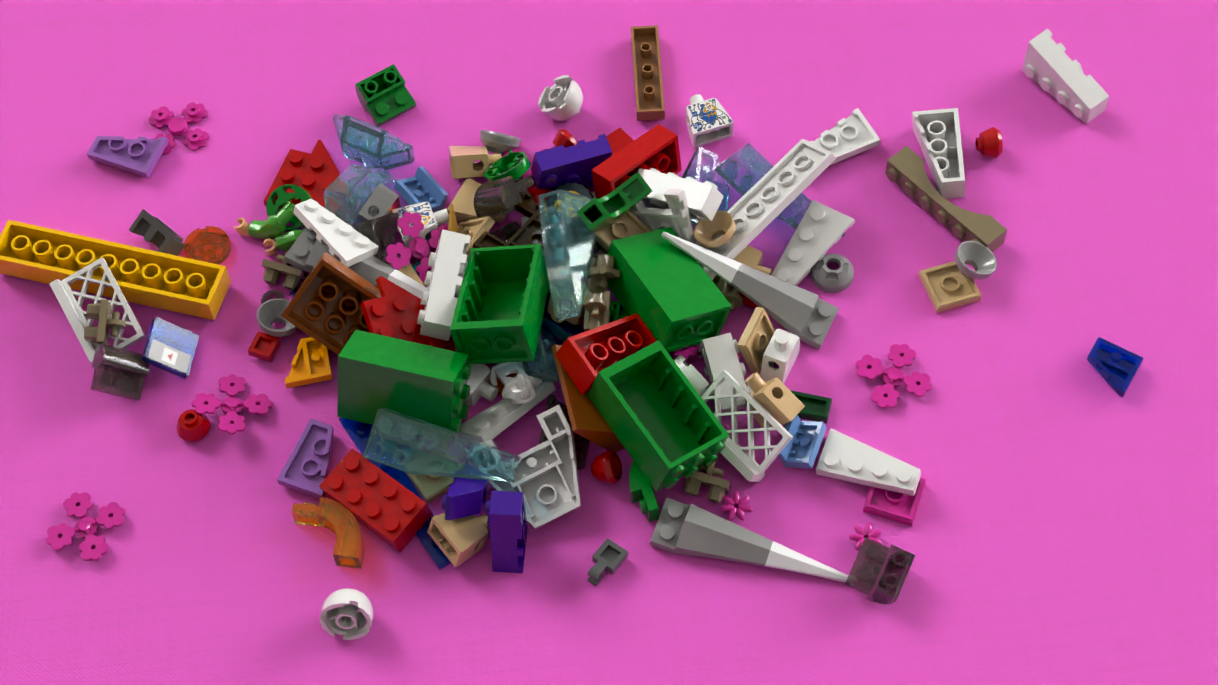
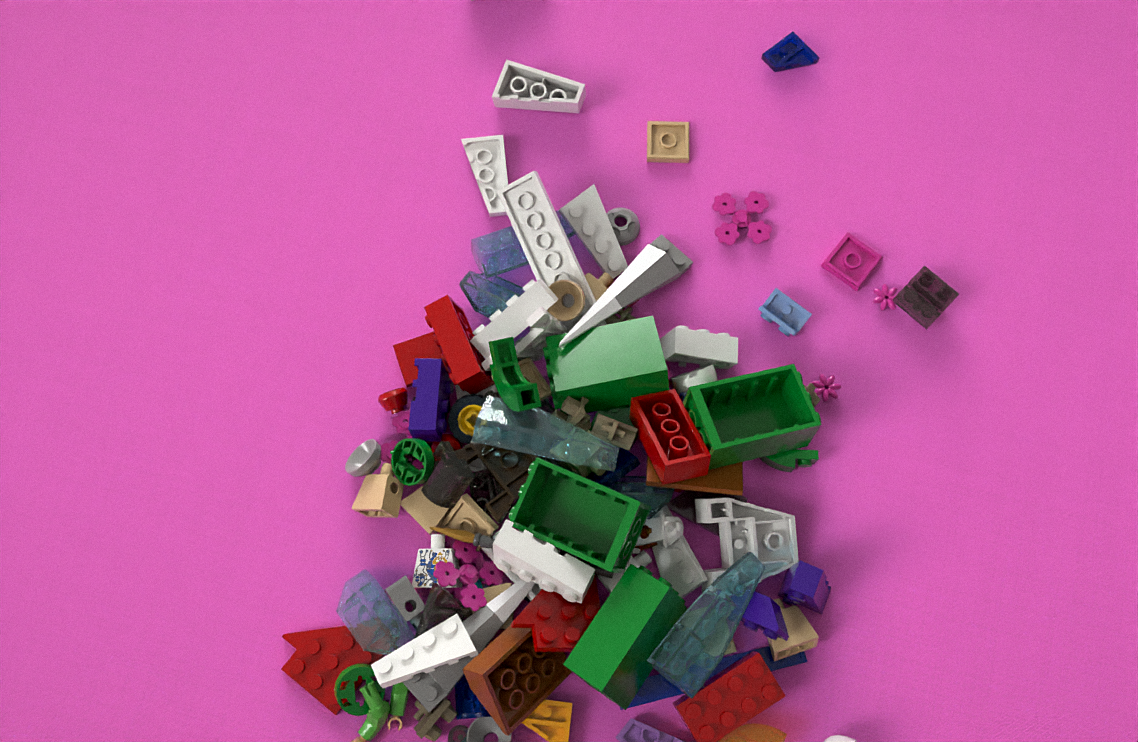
camera: 70 degrees left, 15 degrees up
(371, 144) = (314, 588): clear light blue wedge -> none
(384, 95) = (260, 553): green brick -> none
(422, 189) = (392, 552): medium blue bracket -> none
(562, 99) = (342, 386): white cylinder -> none
(607, 467) = (758, 481): red cone -> none
(607, 558) = (846, 509): dark grey plate -> none
(647, 73) = (340, 299): medium nougat piece -> none
(700, 533) = (849, 417): light grey plate -> none
(707, 121) = (419, 267): torso -> none
(733, 452) = (800, 360): white fence -> none
(756, 339) = (679, 309): tan tile -> none
(774, 398) = (746, 324): tan torso -> none
(783, 350) = (696, 297): torso -> none
(816, 407) = (745, 297): dark green tile -> none
(862, 464) = (817, 276): white wing -> none
(908, 172) = (549, 125): dark tan arch -> none
(978, 257) = (661, 107): light grey piece -> none
(989, 142) = (542, 52): red cone -> none

